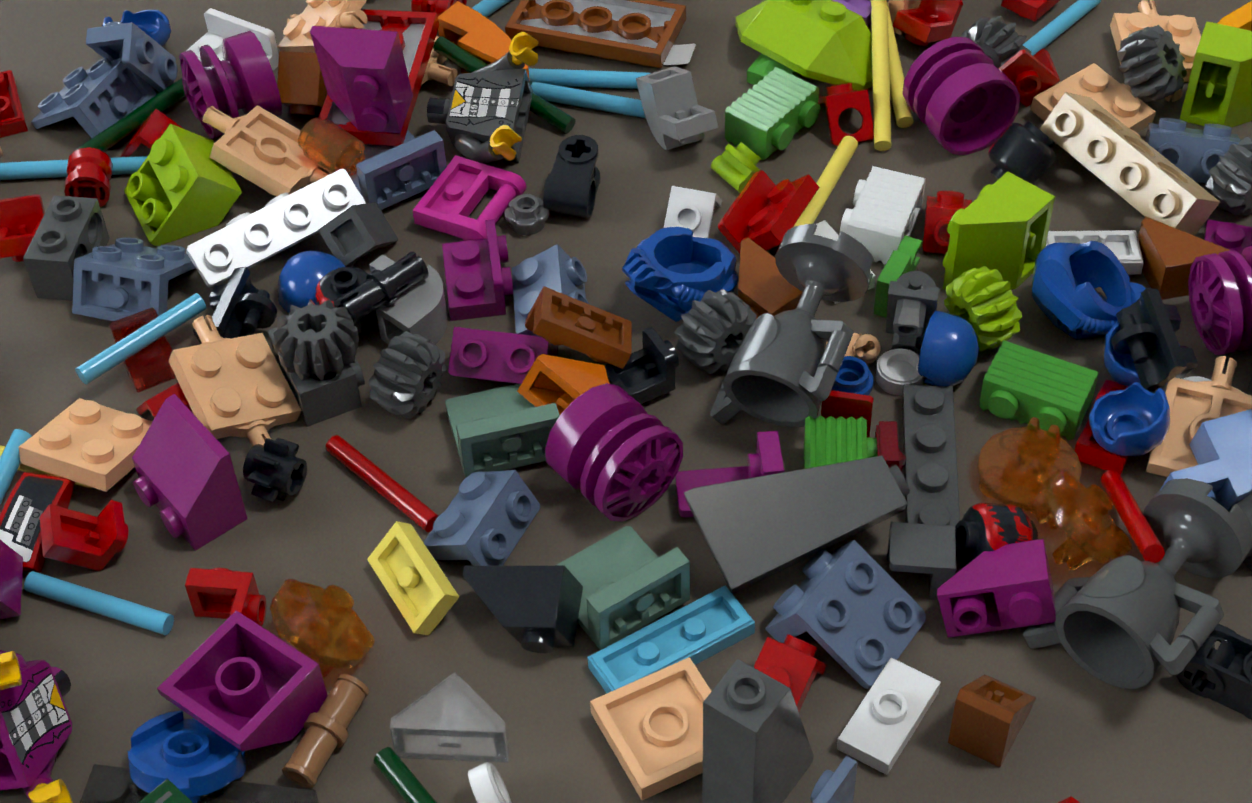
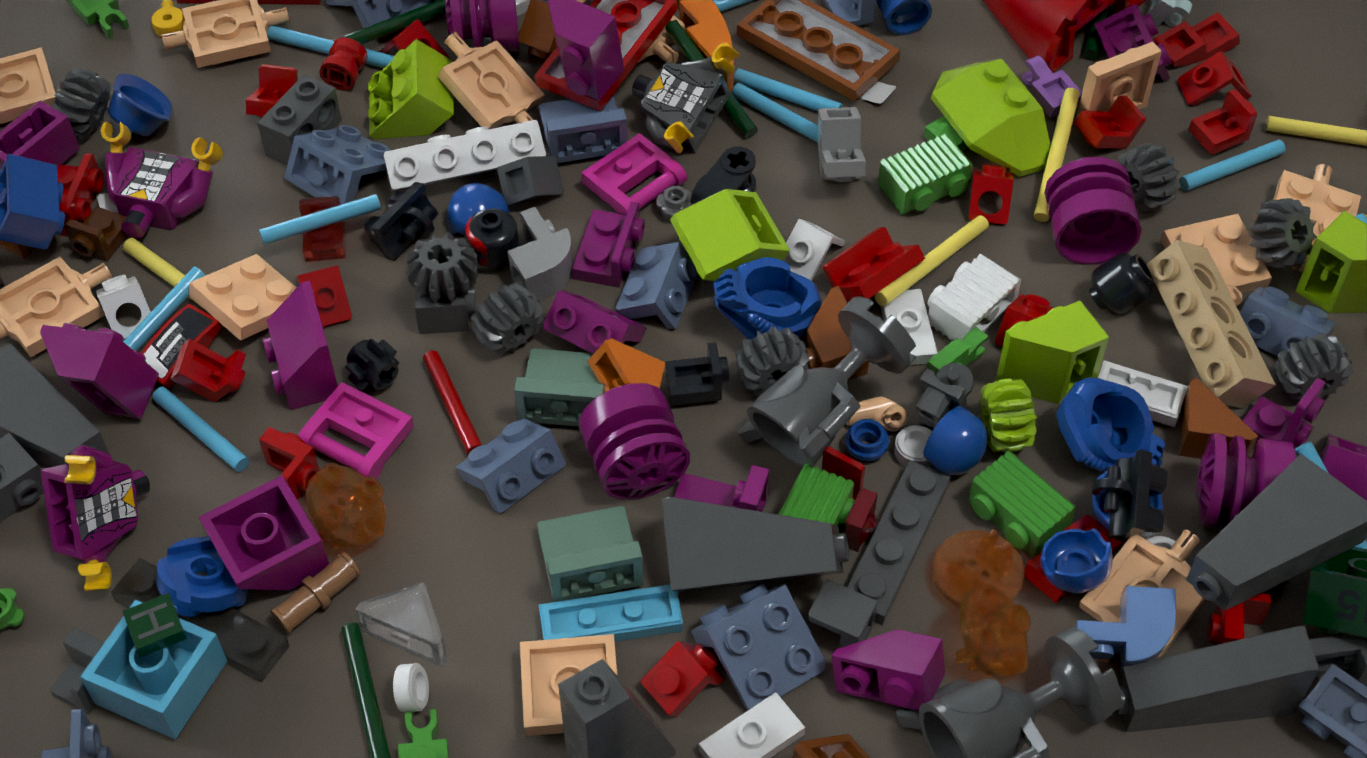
camera: 20 degrees right, 5 degrees up
(234, 384) = (370, 283): light nougat plate -> none
(289, 531) = (362, 420): none -> dark pink plate
(331, 146) = (538, 96): clear orange brick -> none
(383, 287) = (515, 238): black pin -> none
(413, 578) = (435, 492): light yellow plate -> none
(531, 602) = (511, 546): black slope -> none
(581, 327) = (659, 324): dark orange bracket -> none
(605, 220) = (728, 232): none -> lime slope
(736, 165) = (873, 213): lime plate -> none
(881, 78) = (1036, 170): light yellow bar -> none
(992, 527) = (912, 612): black head -> none
(1031, 74) = (1166, 210): red bracket -> none
(1132, 517) = (1034, 645): red bar -> none

